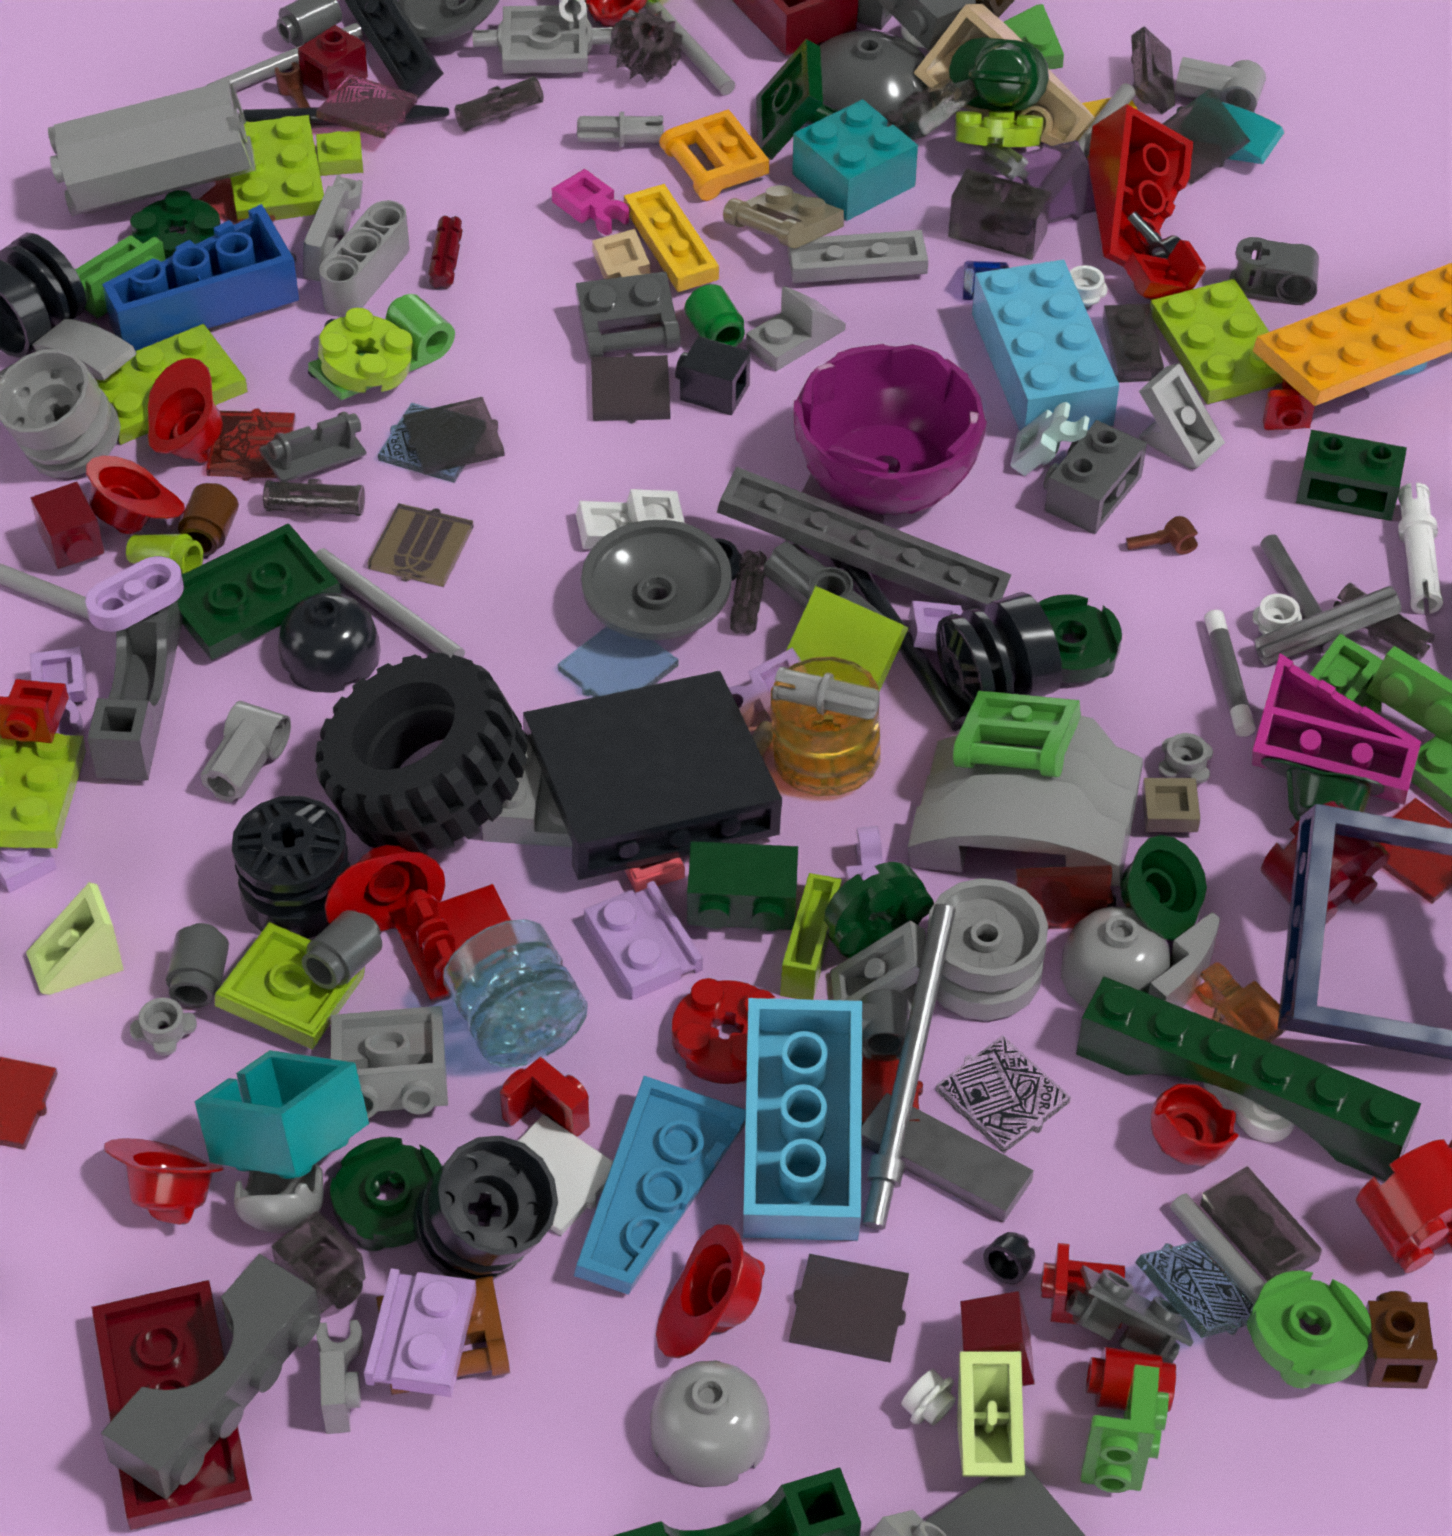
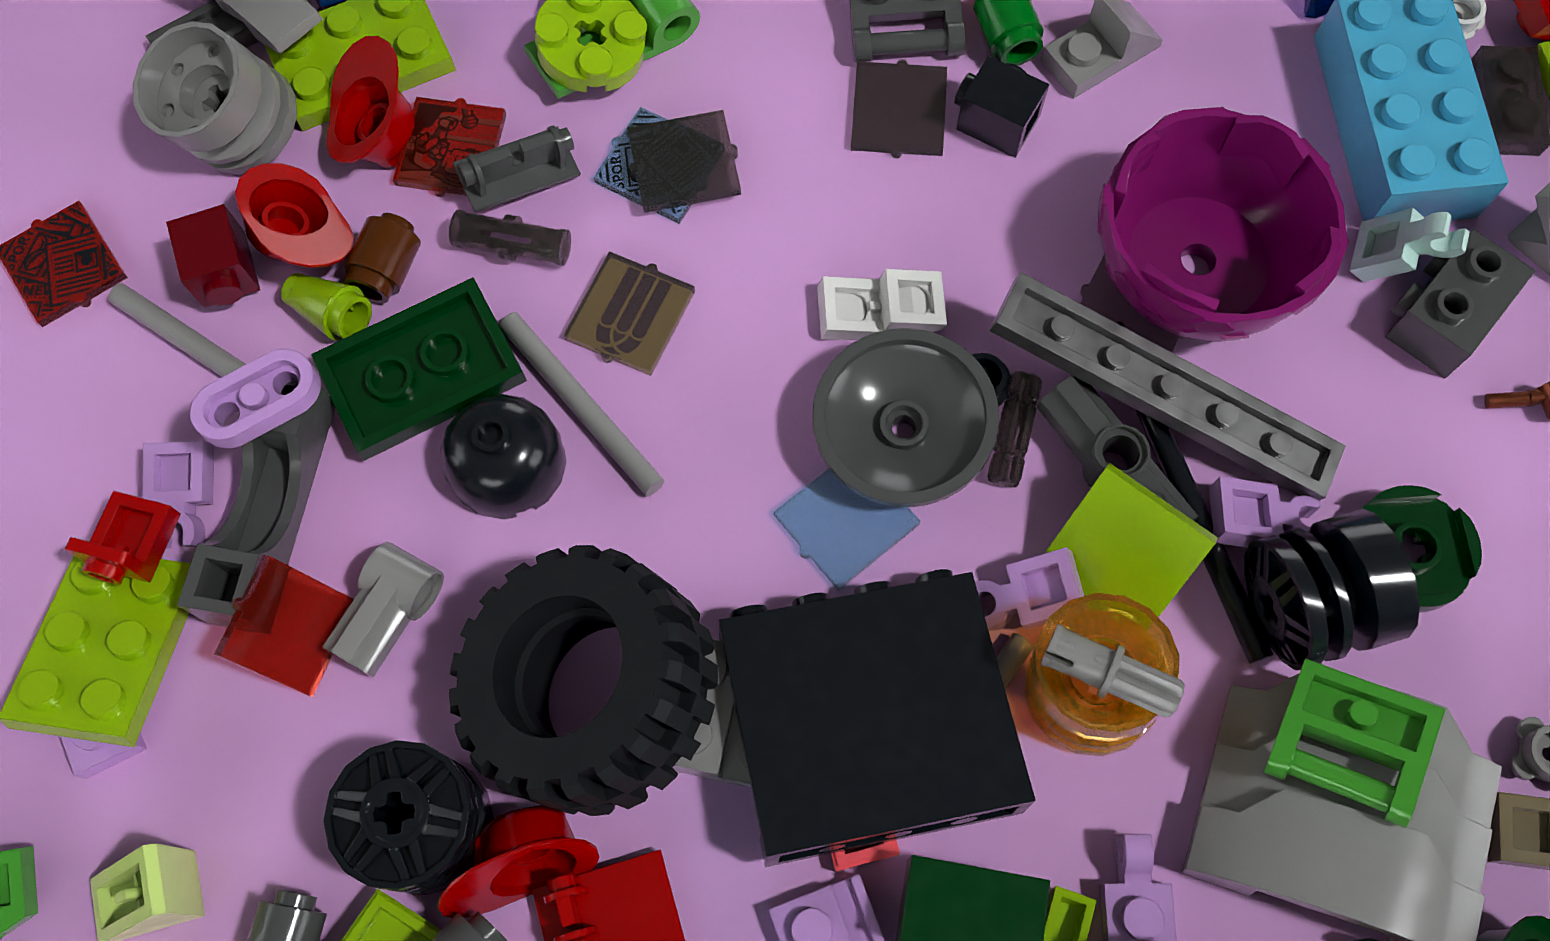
camera: 10 degrees right, 20 degrees up
(170, 757) = (284, 626): none -> clear red piece

